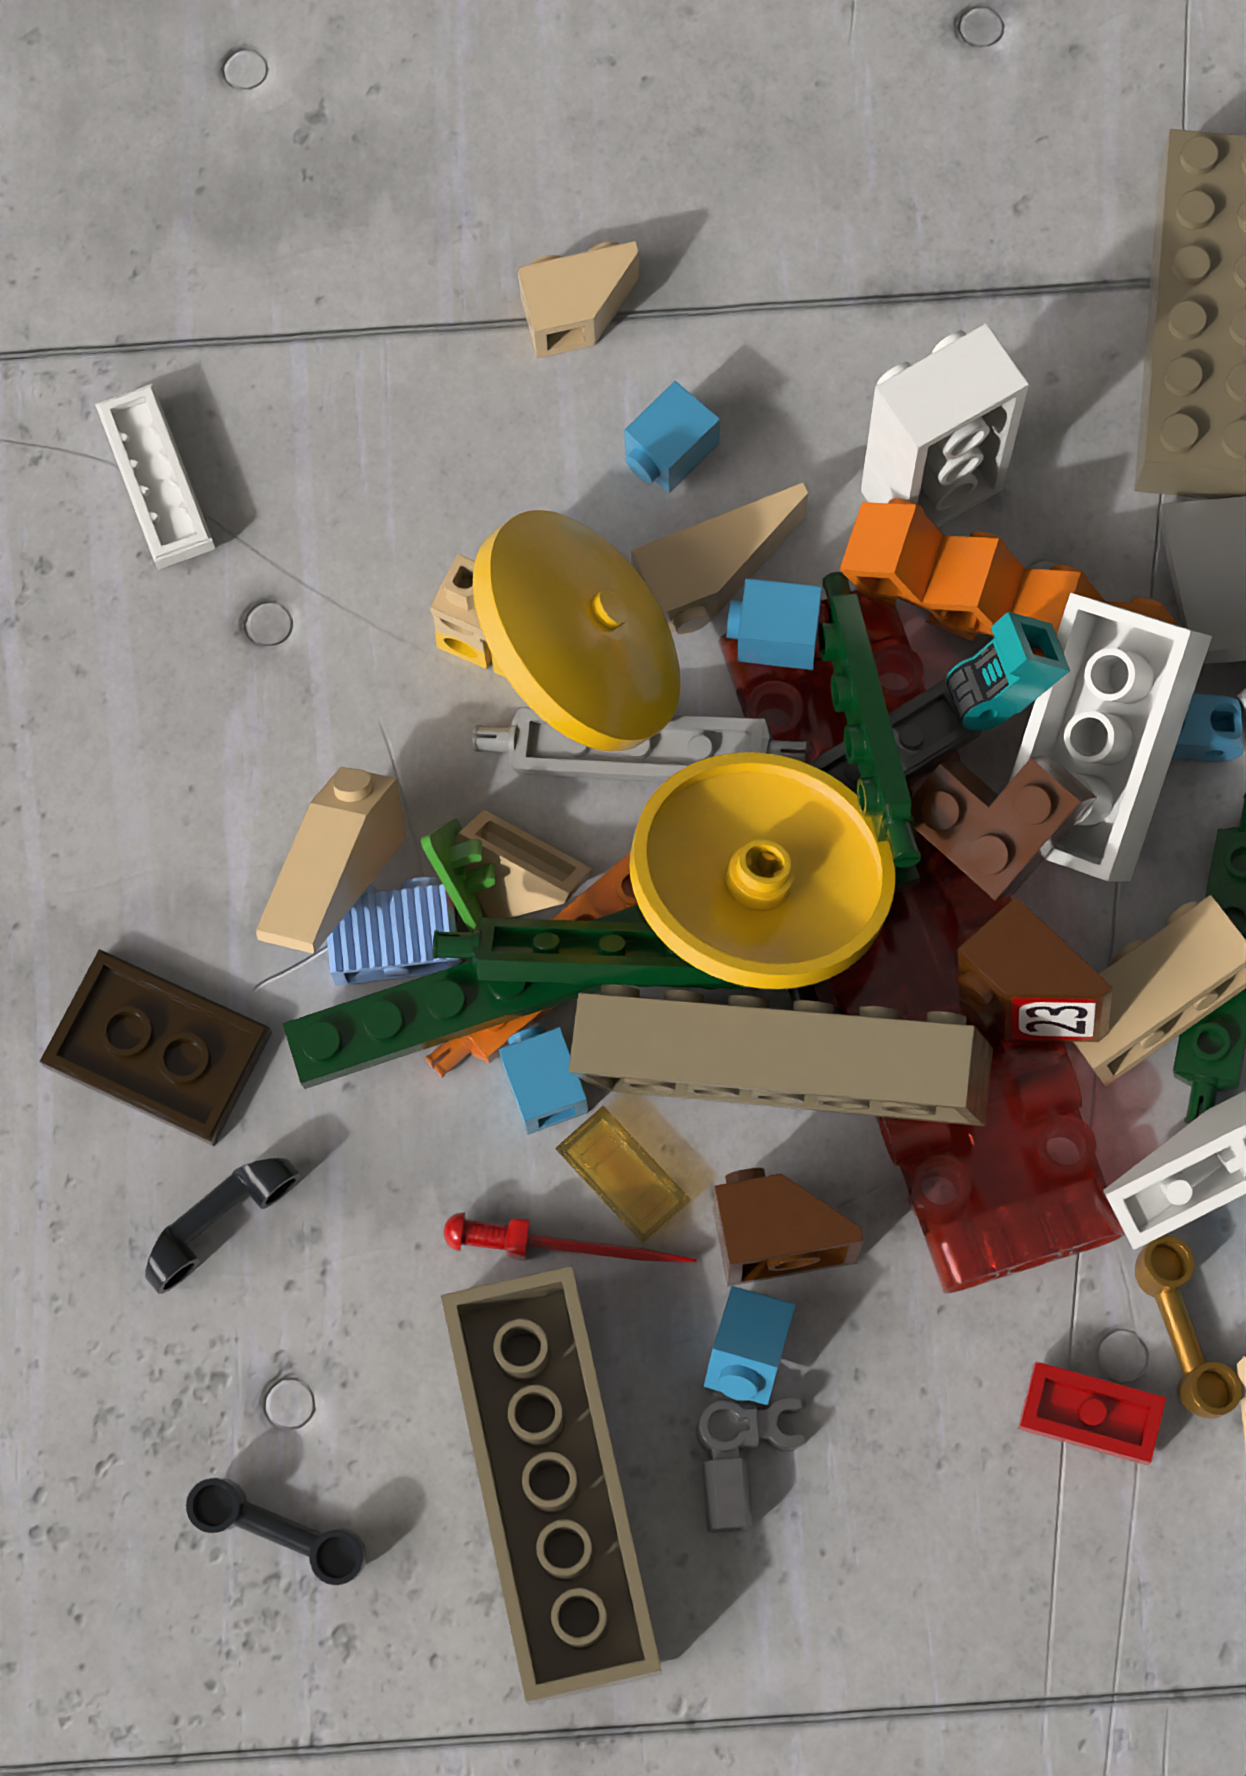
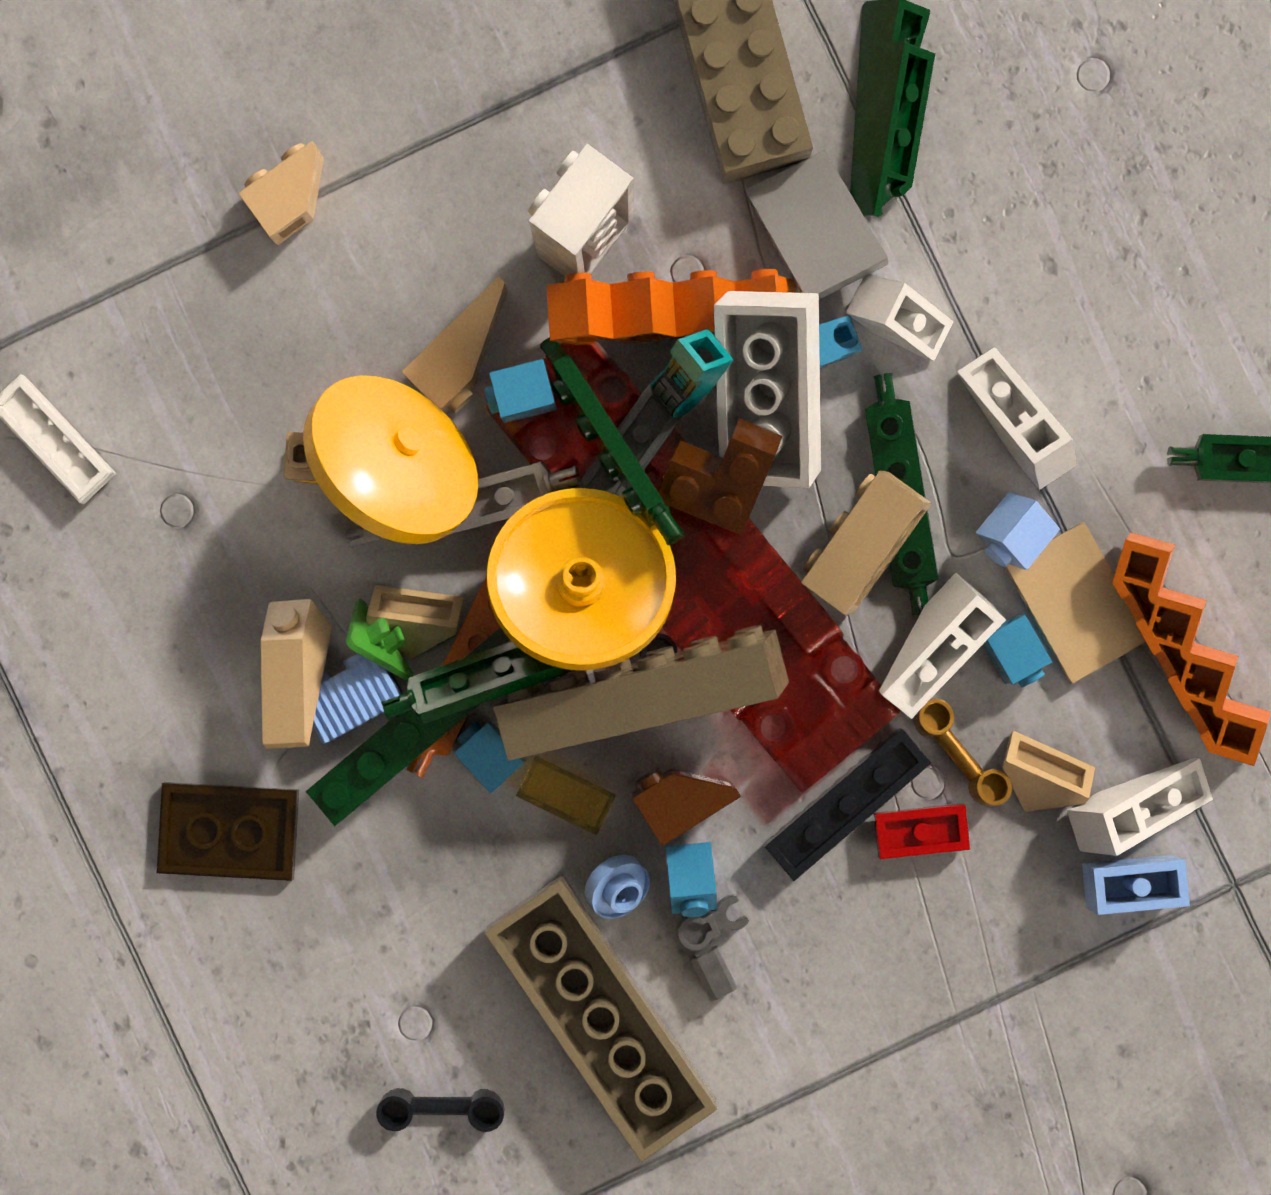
camera: 25 degrees left, 15 degrees up
(173, 1259) = (299, 964): black bar -> none
(516, 1238) = (514, 864): red sword -> none
(643, 1318) = (617, 886): none -> light blue plate
(670, 438) = (394, 274): dark azure brick -> none
(1001, 1334) = (847, 803): none -> black gear
(1030, 982) = (782, 583): reddish brown slope -> none

